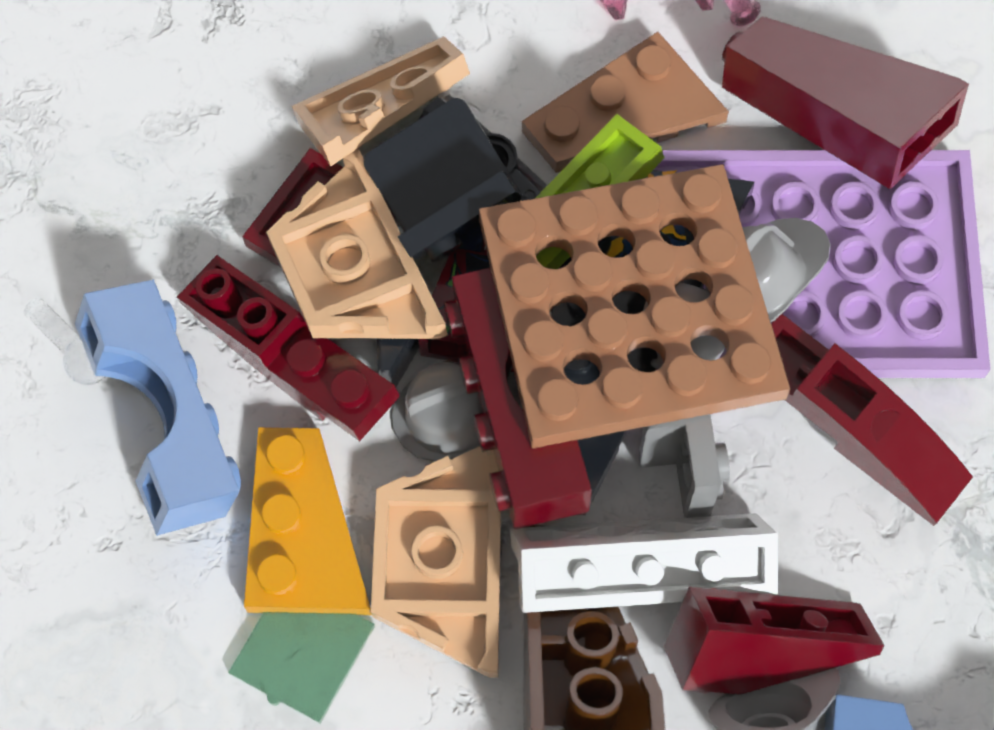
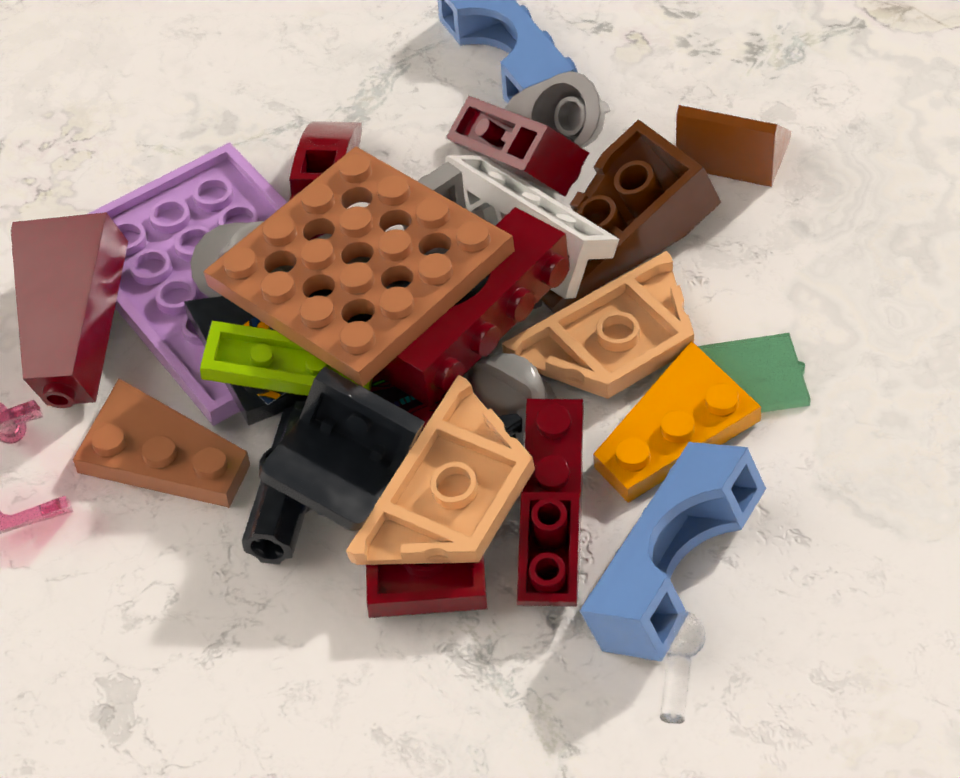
camera: 125 degrees left, 20 degrees down
(374, 101) = (286, 588): light nougat wing -> none

